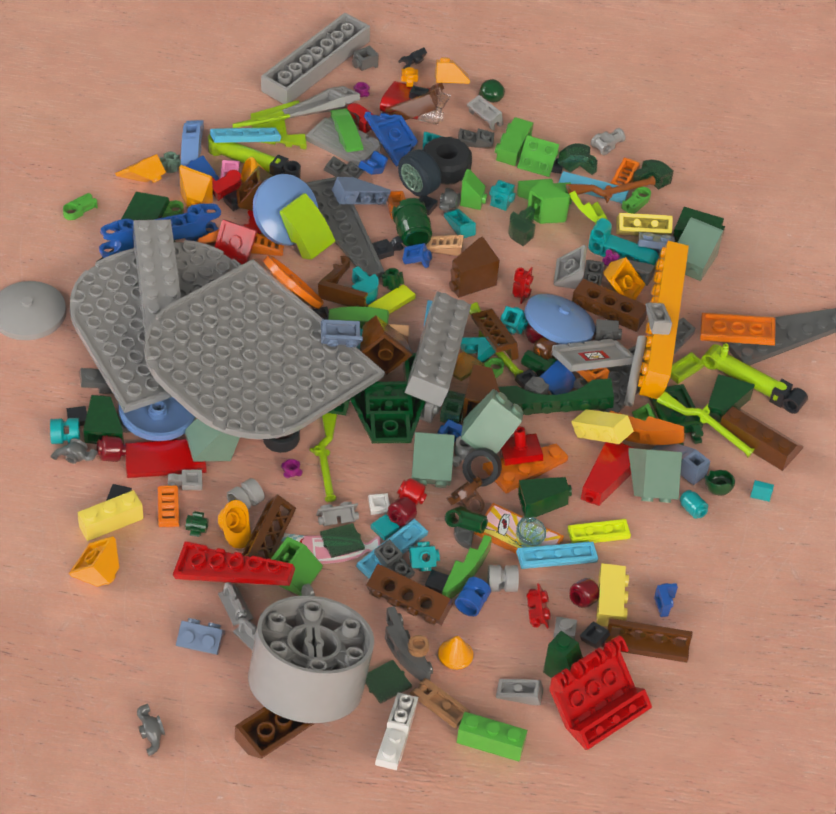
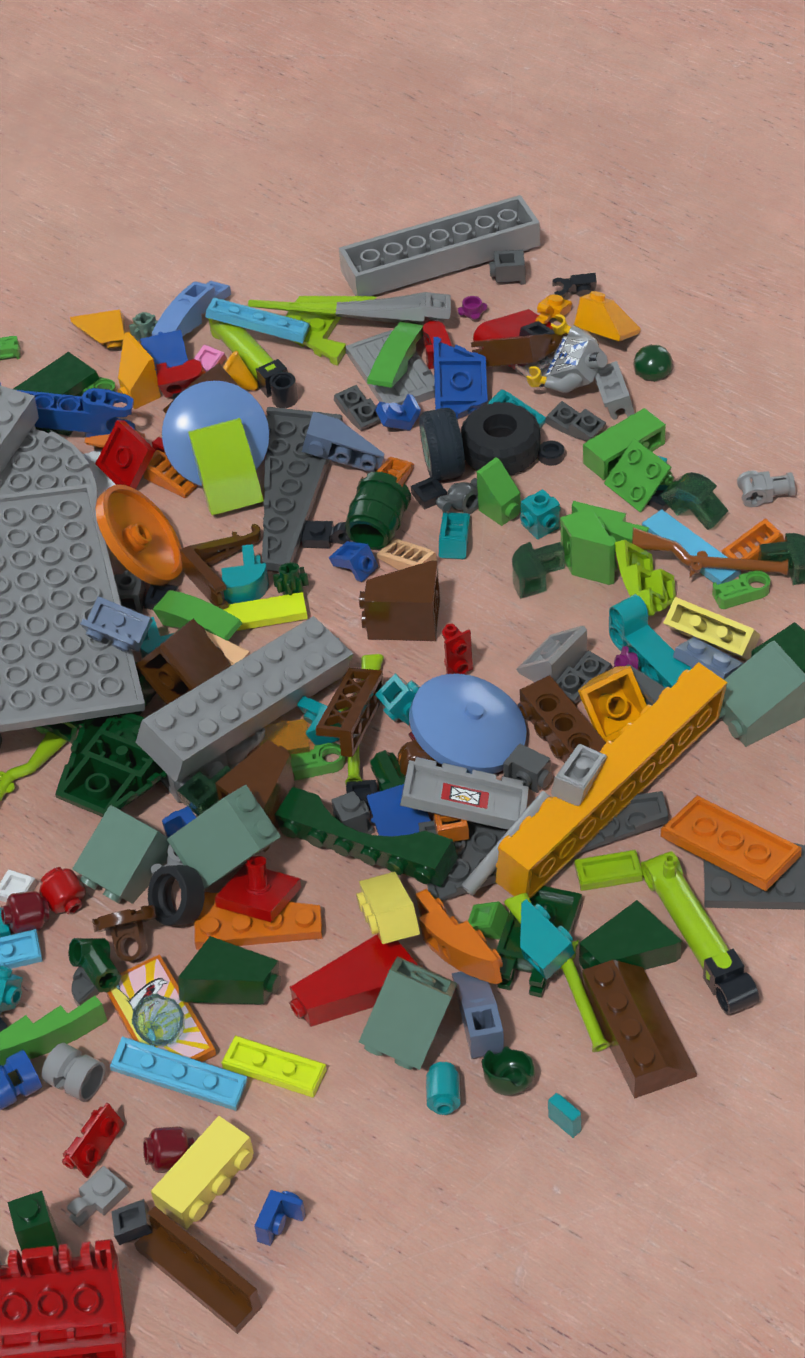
camera: 40 degrees right, 0 degrees up
(455, 101) = (573, 362): none -> light grey torso
(477, 160) = (551, 453): none -> black tile
(694, 410) = (542, 942): none -> teal slope

